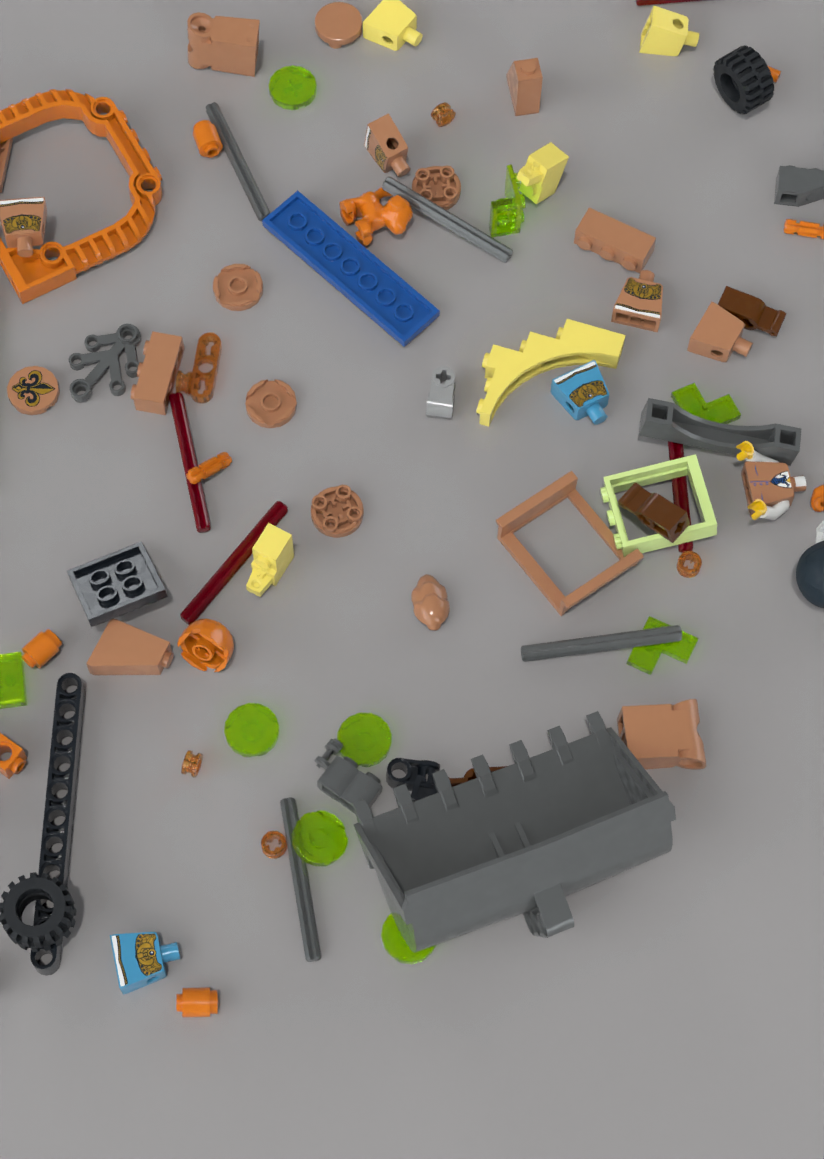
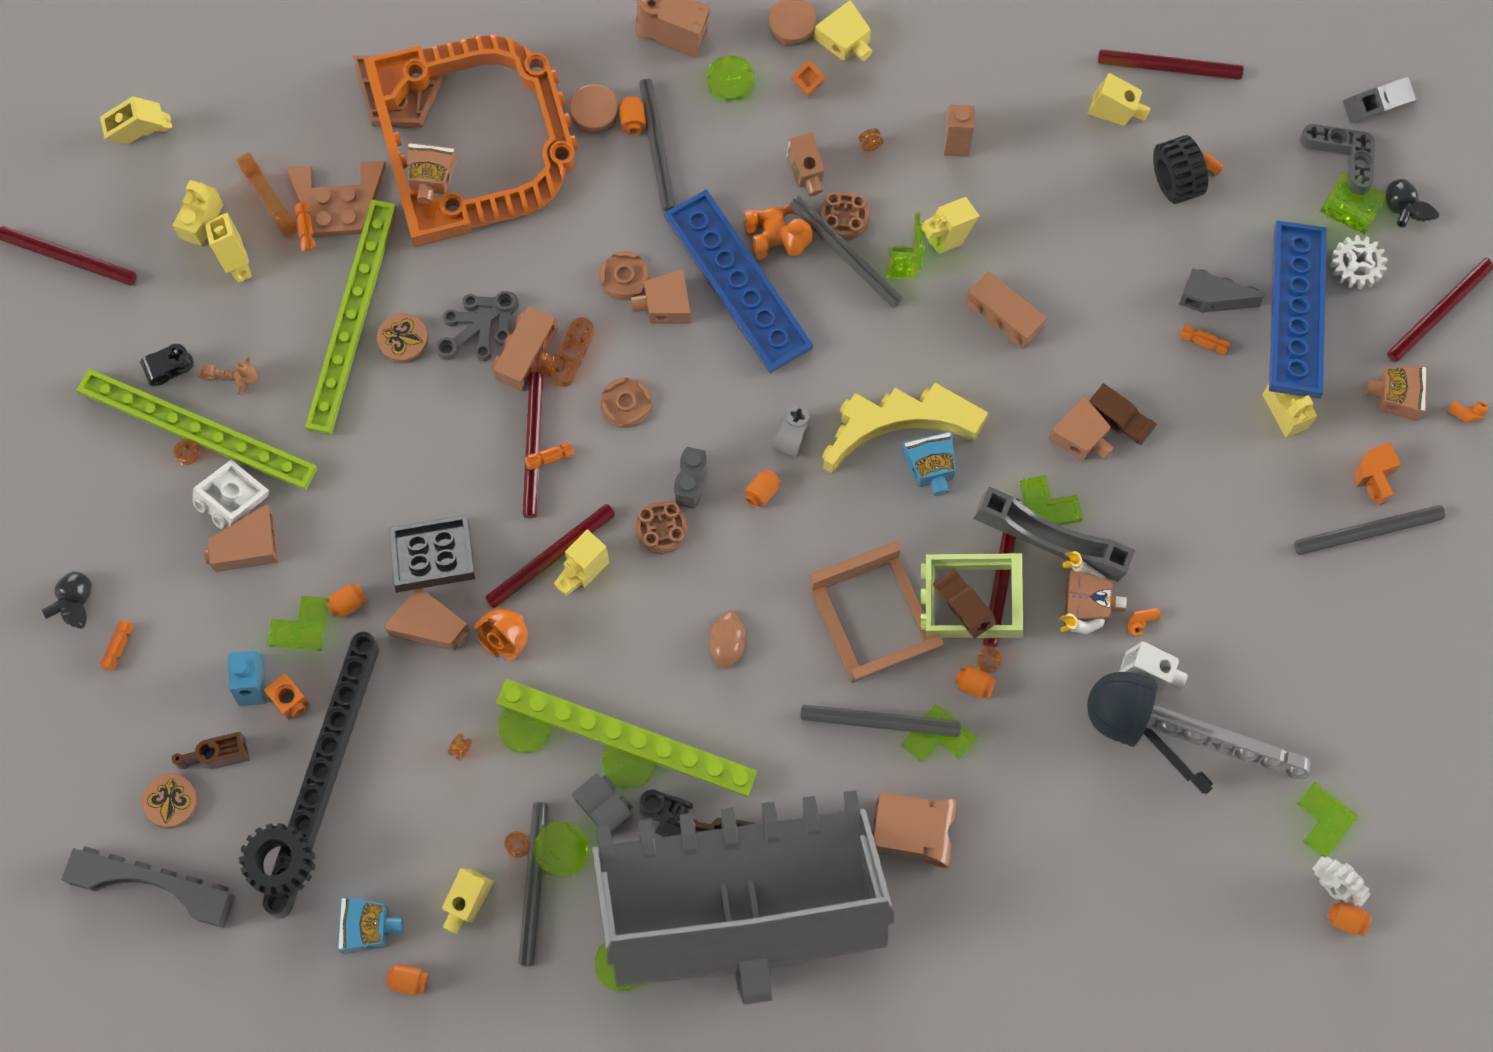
camera: 15 degrees right, 5 degrees up
(167, 140) = (594, 108): none -> nougat tile
(237, 894) = (474, 890): none -> light yellow torso
(284, 299) = (665, 299): none -> nougat torso
(332, 747) = (595, 763): dark grey piece -> none
(354, 457) = (688, 481): none -> dark grey brick
(356, 716) = (627, 738): none -> lime plate
(368, 70) = (808, 78): none -> orange brick
(426, 453) = (762, 488): none -> orange brick
(639, 303) = (1013, 380): nougat torso -> none
(682, 587) = (975, 682): none -> orange brick

